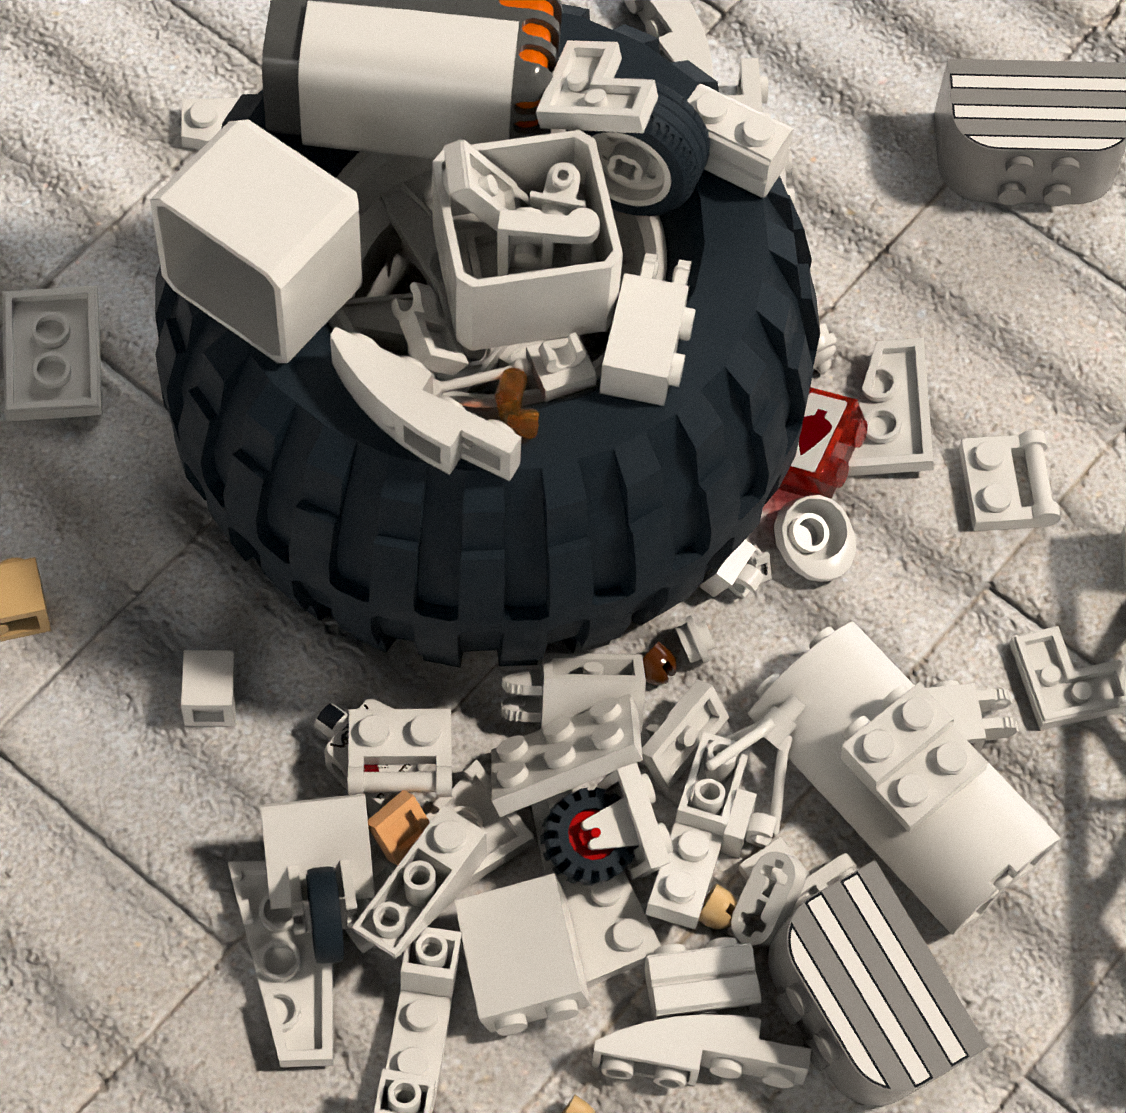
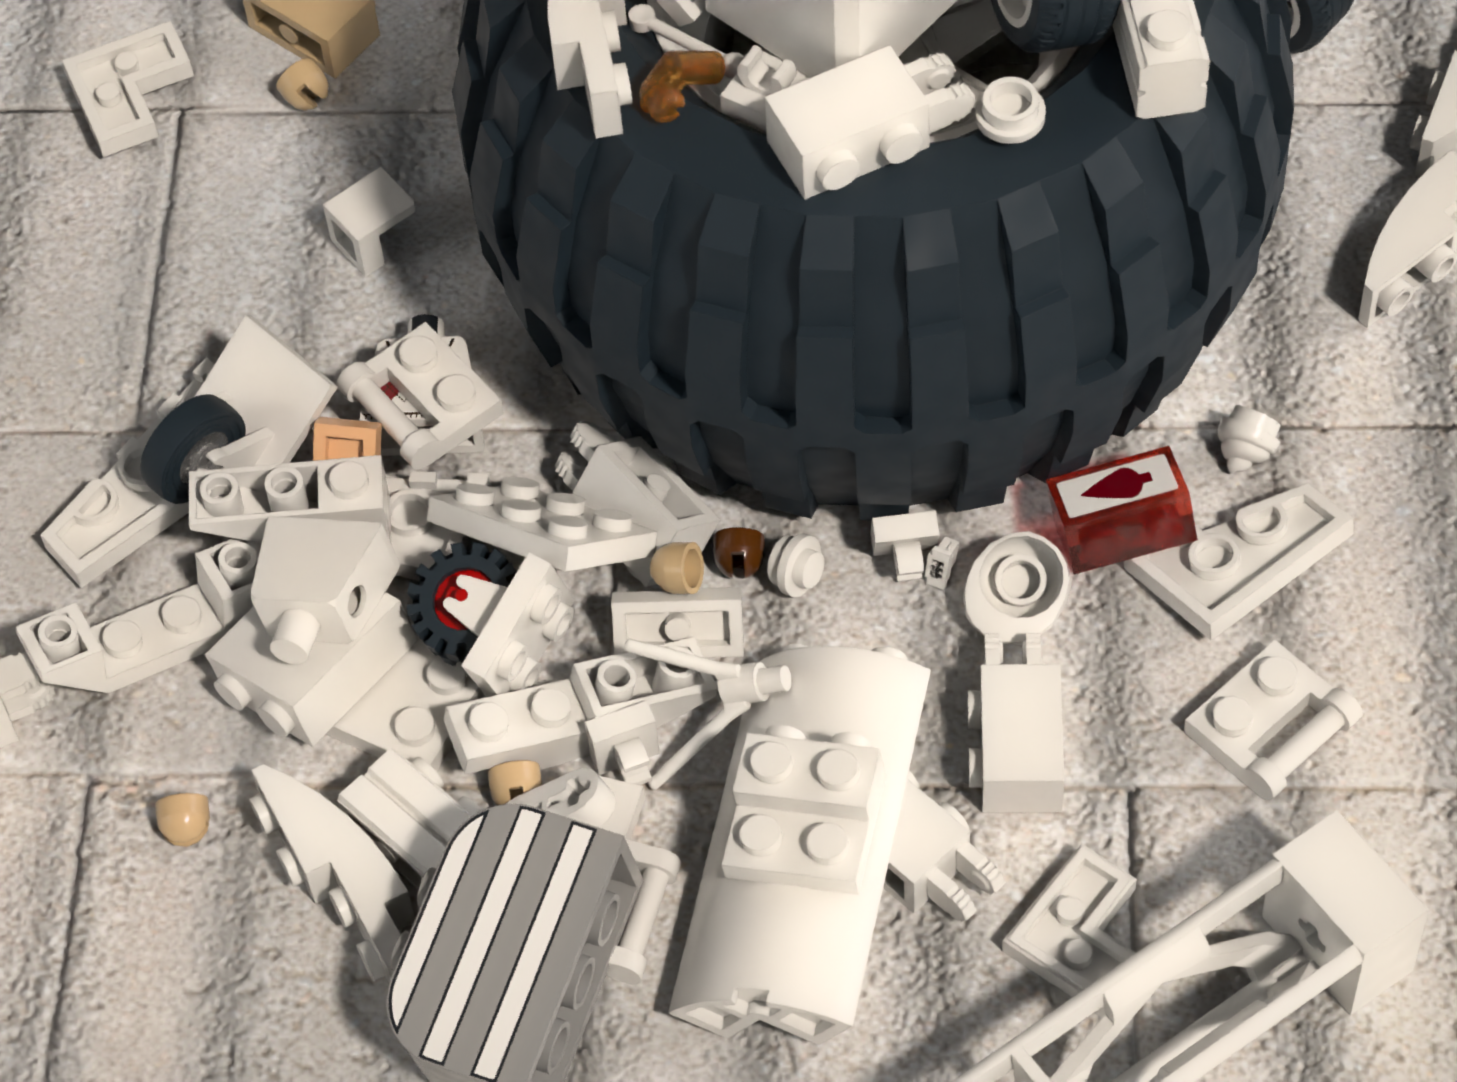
camera: 60 degrees right, 5 degrees down
(46, 651) = (302, 84): none -> tan hinge
(506, 910) = (319, 581): none -> white torso
(662, 703) = (678, 567): none -> tan hinge
(709, 253) = (1010, 111): none -> white plate
(911, 607) = (1020, 731): none -> white hinge

